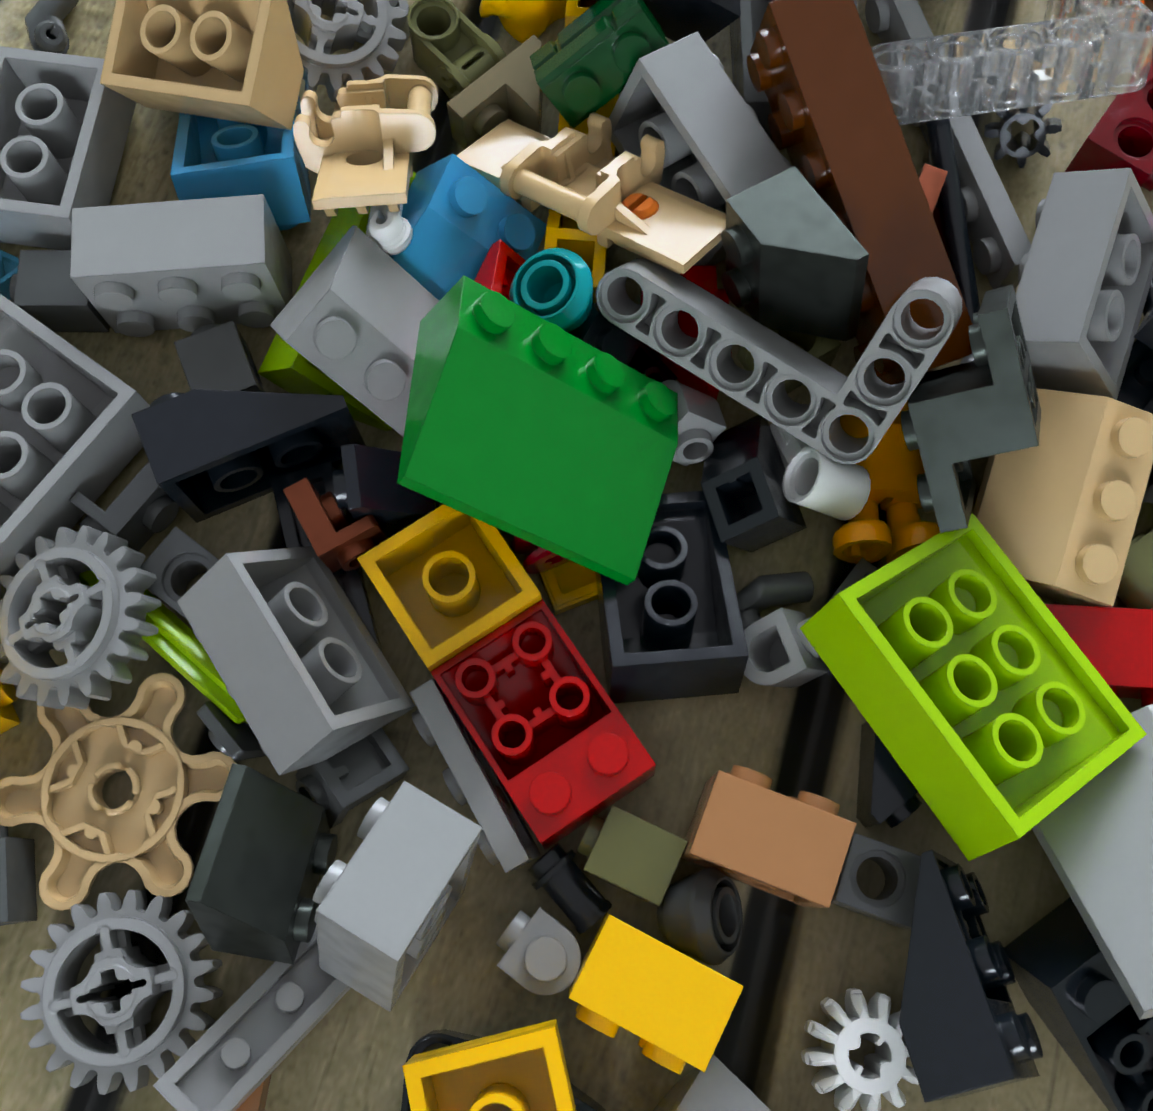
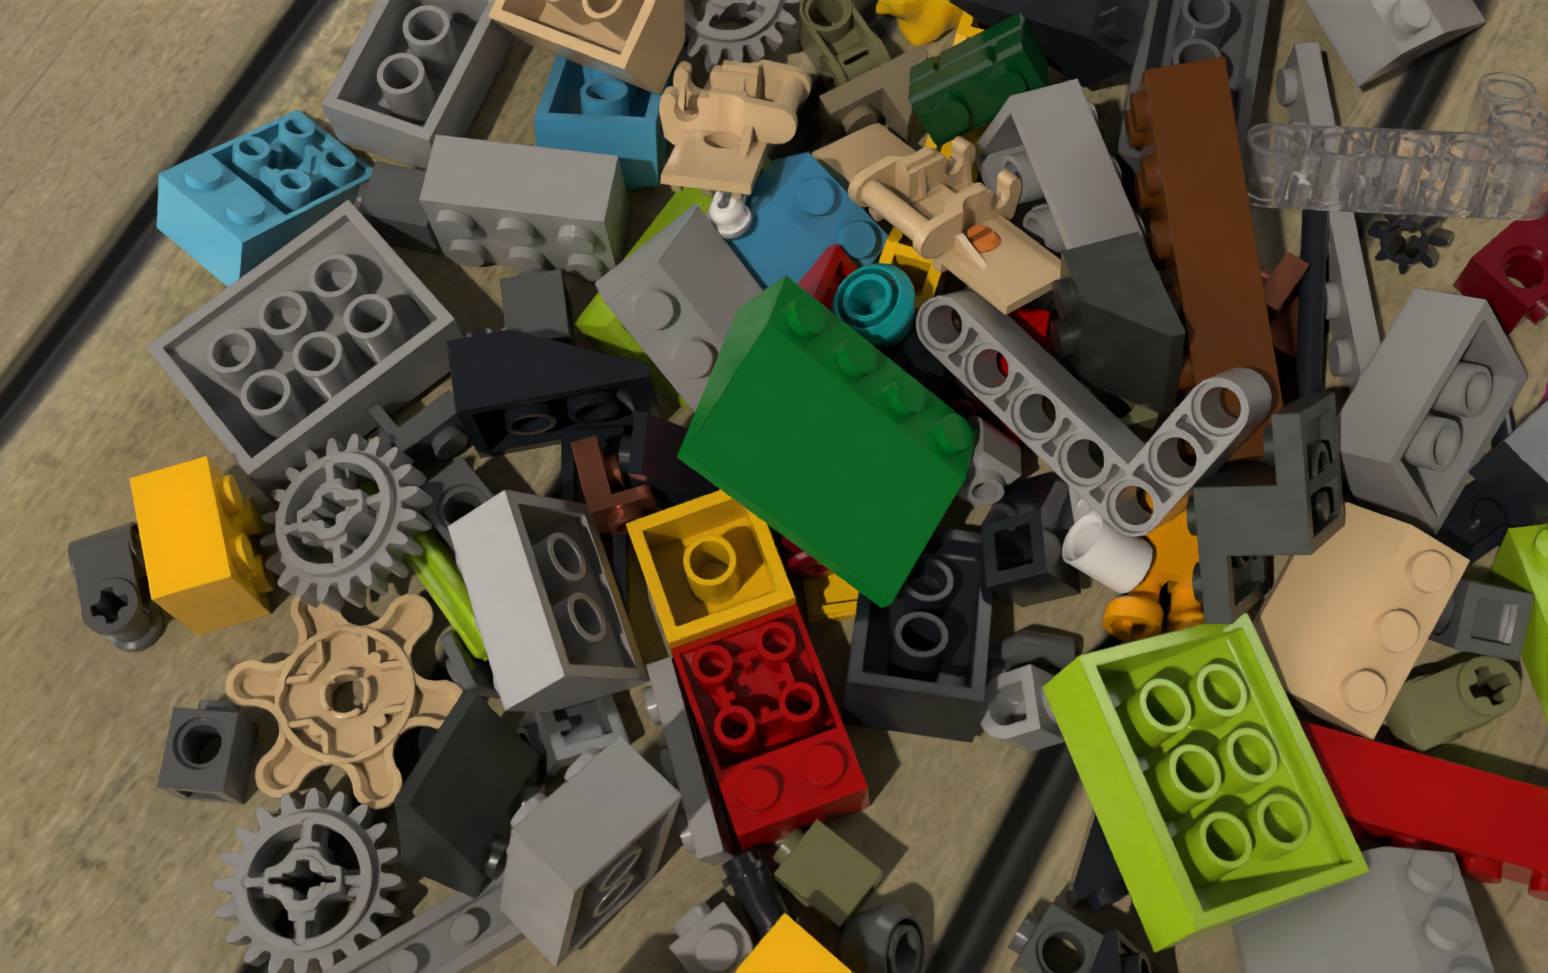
camera: 20 degrees right, 5 degrees down
(769, 838) = (959, 883): medium nougat brick -> none

